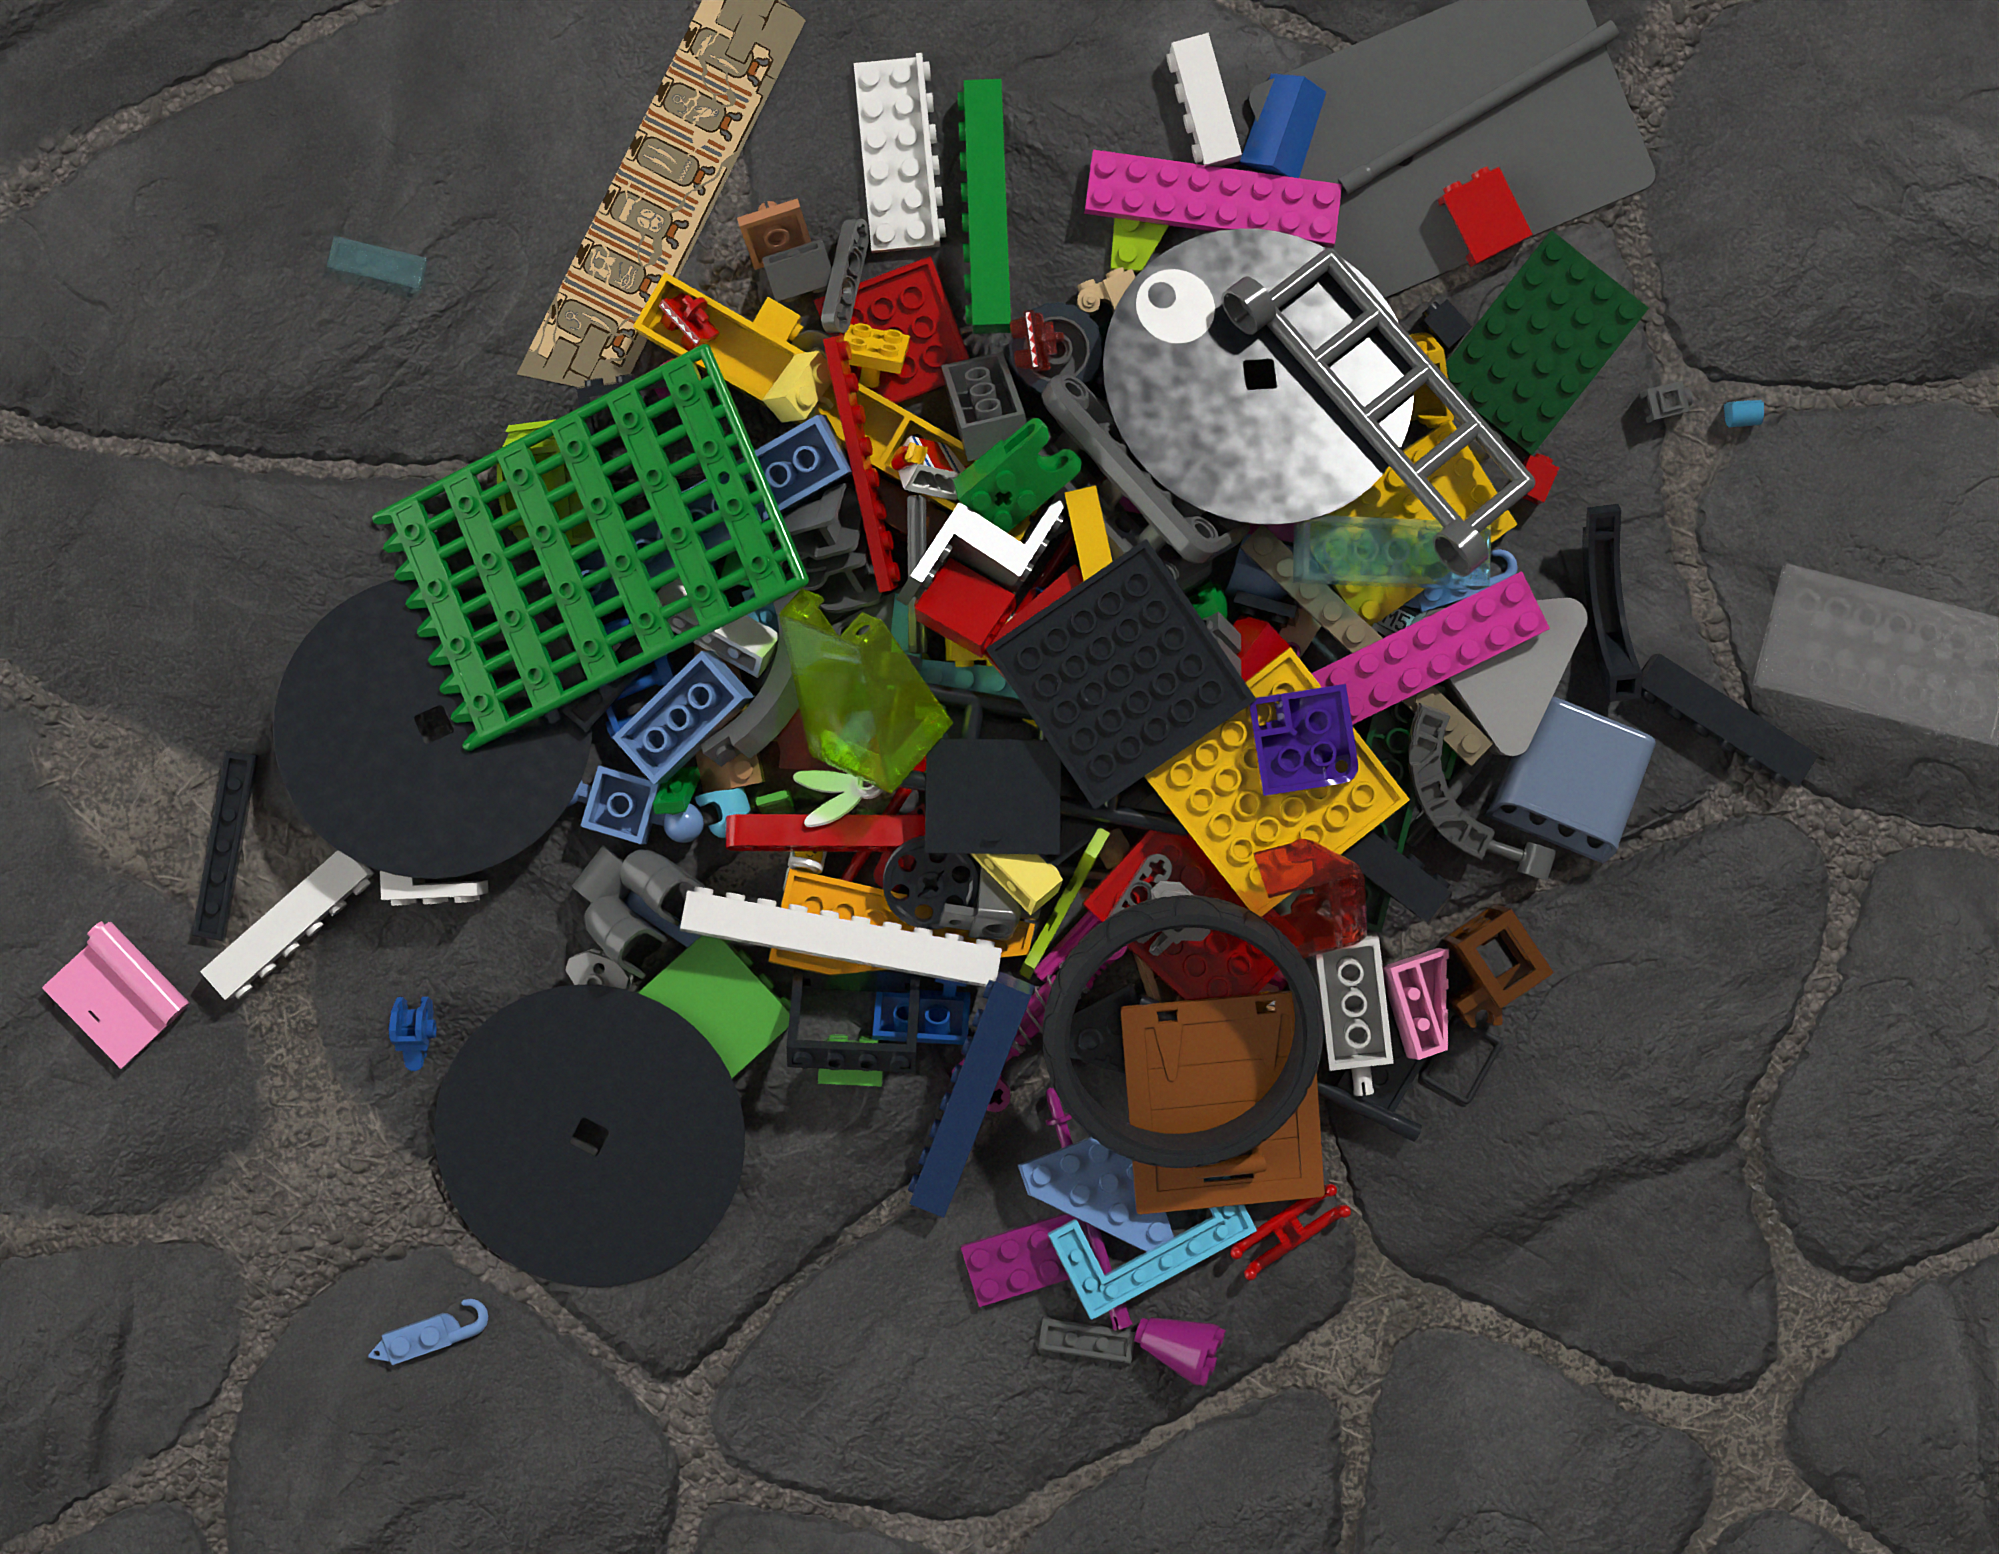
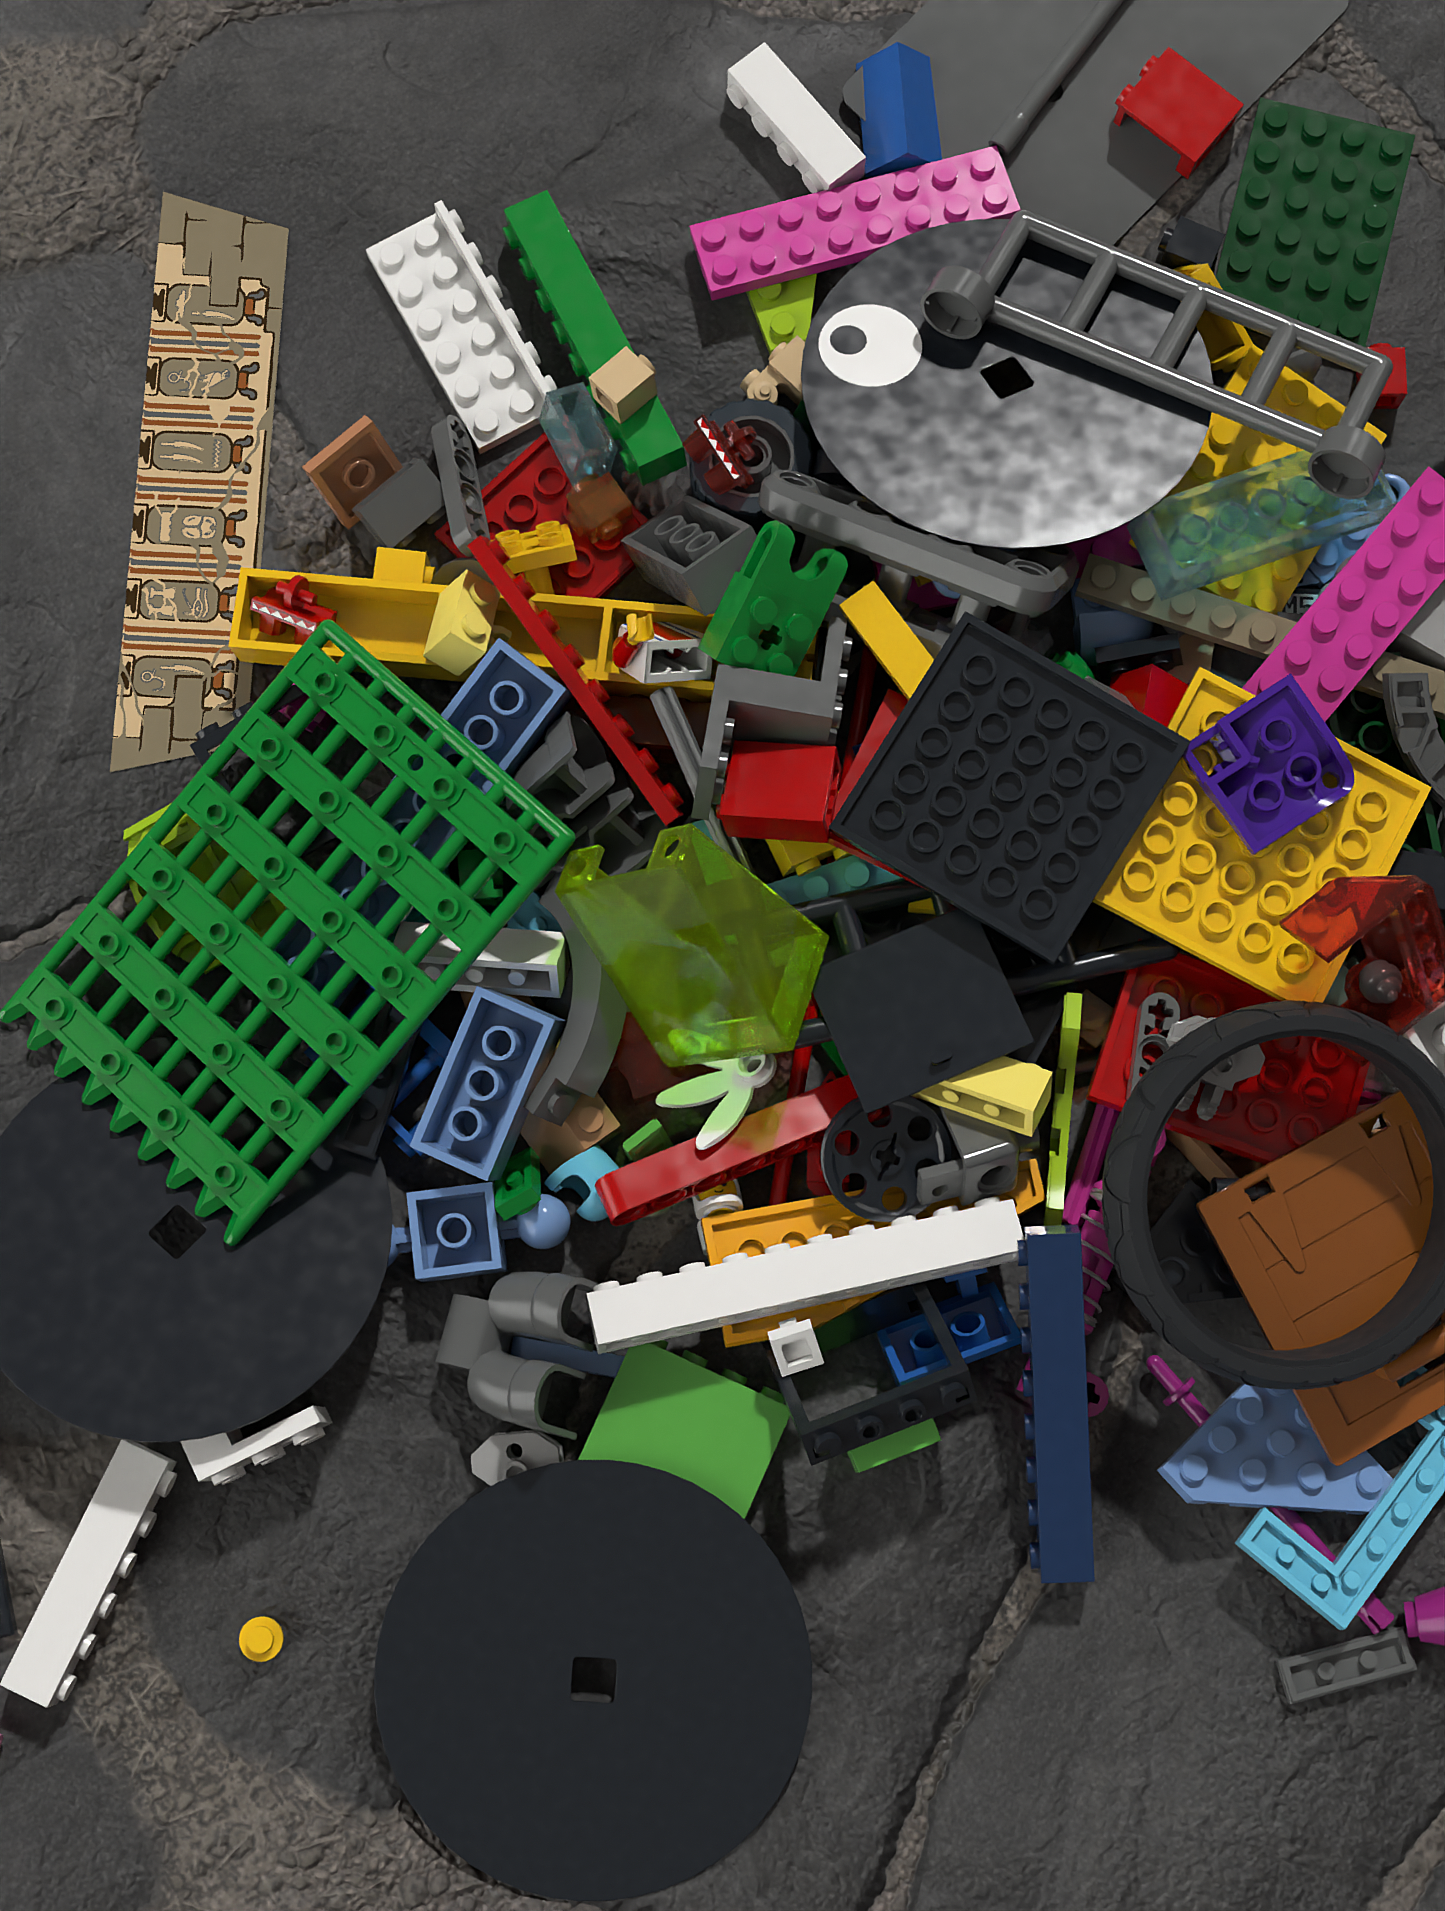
camera: 25 degrees left, 10 degrees down
(380, 1013) = (261, 1639): none -> yellow plate
(412, 1031) = (307, 1642): blue hinge -> none
(812, 983) = (795, 1346): none -> white tile
(935, 335) = (598, 507): none -> clear orange brick
(943, 275) = (577, 432): none -> clear light blue piece
(988, 260) = (624, 384): none -> tan brick
(1016, 1260) = (1209, 1600): magenta plate -> none
(1314, 914) = (1380, 982): none -> dark grey plate

